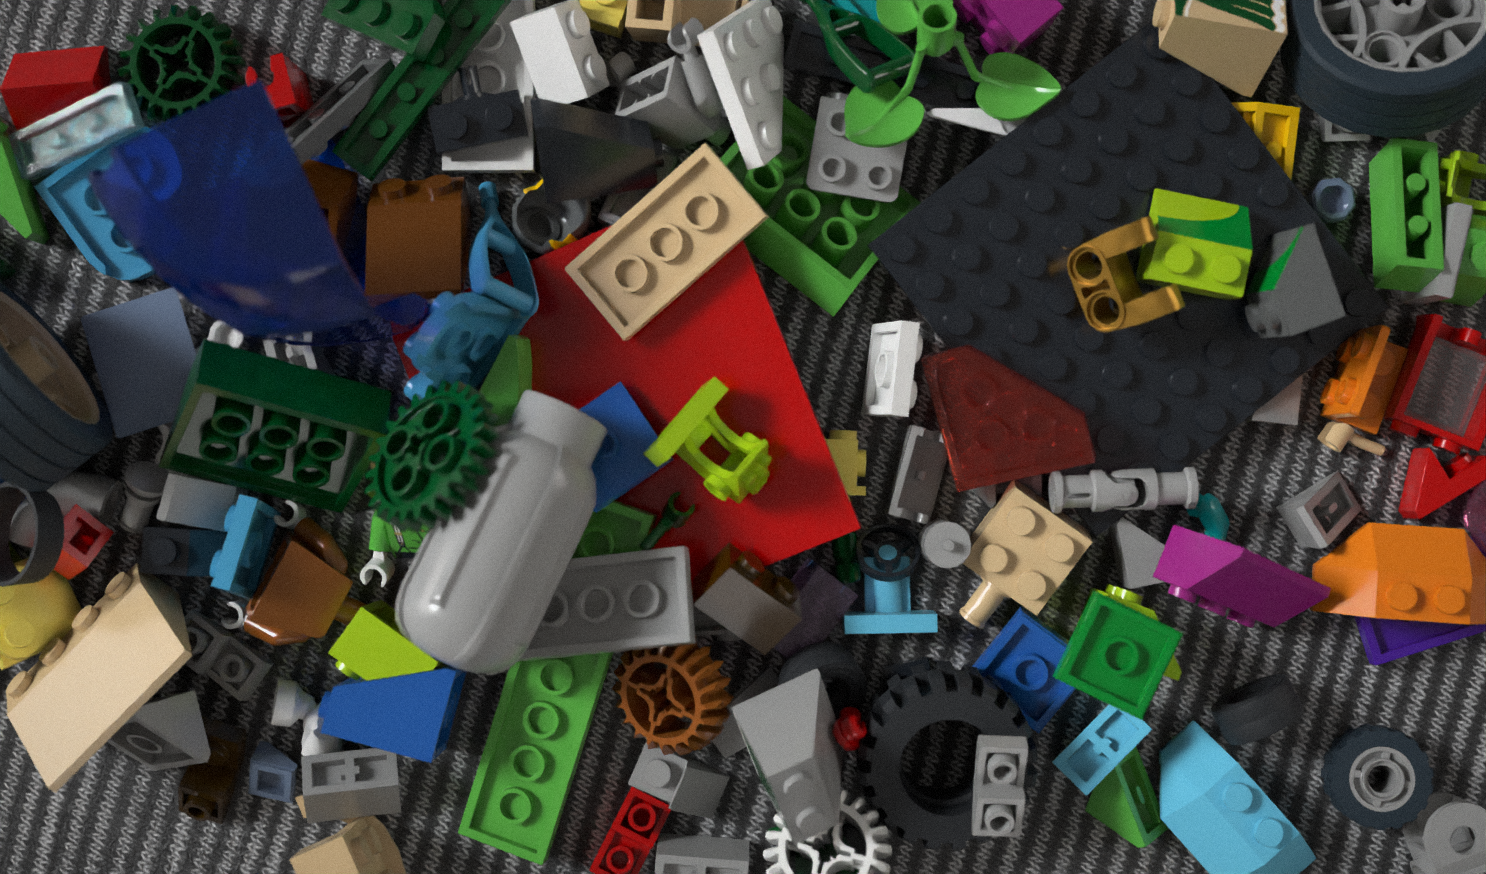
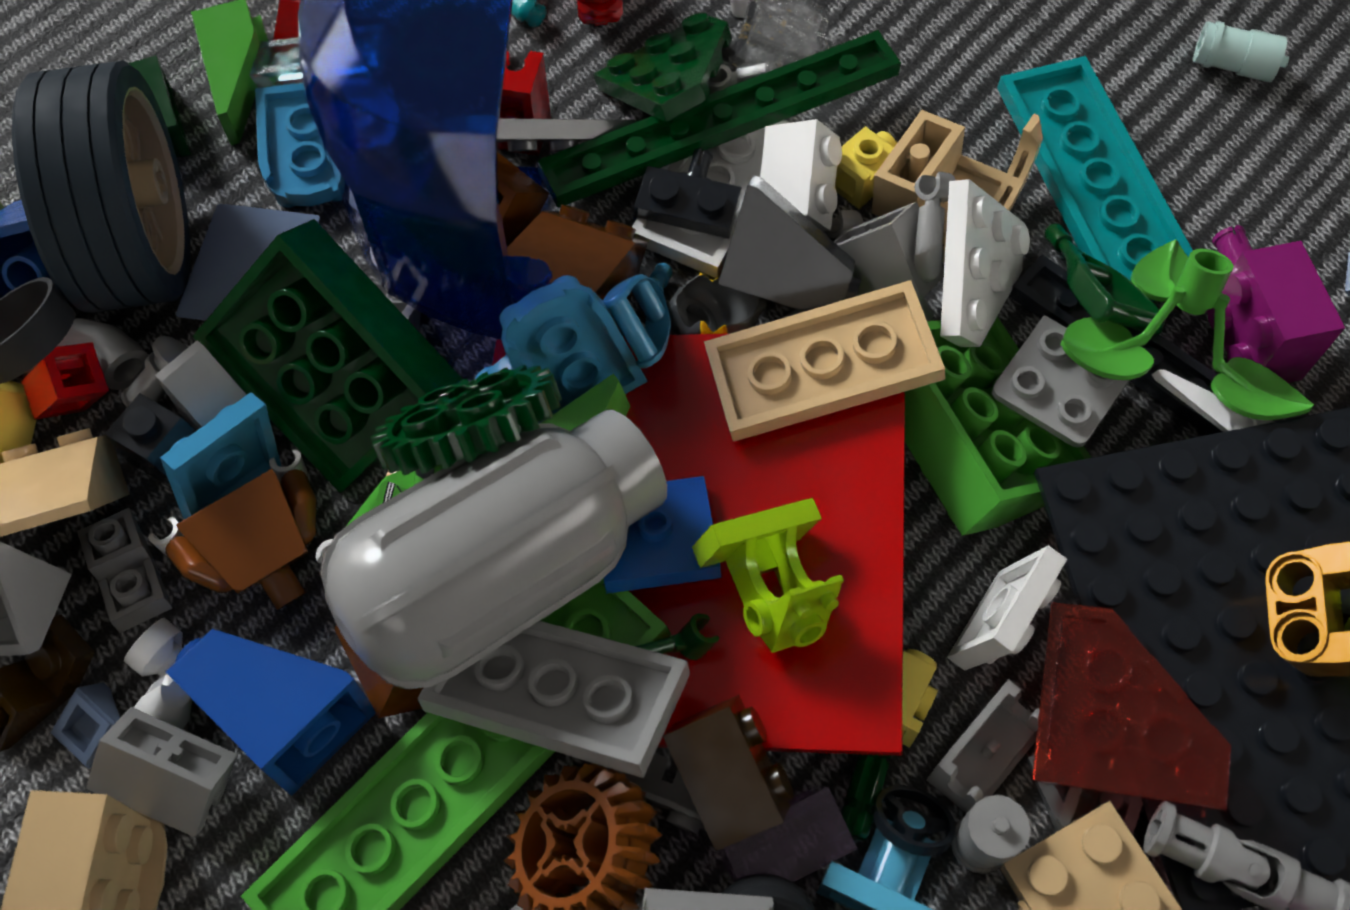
camera: 25 degrees right, 25 degrees down
(377, 648) = (291, 616): lime slope -> none

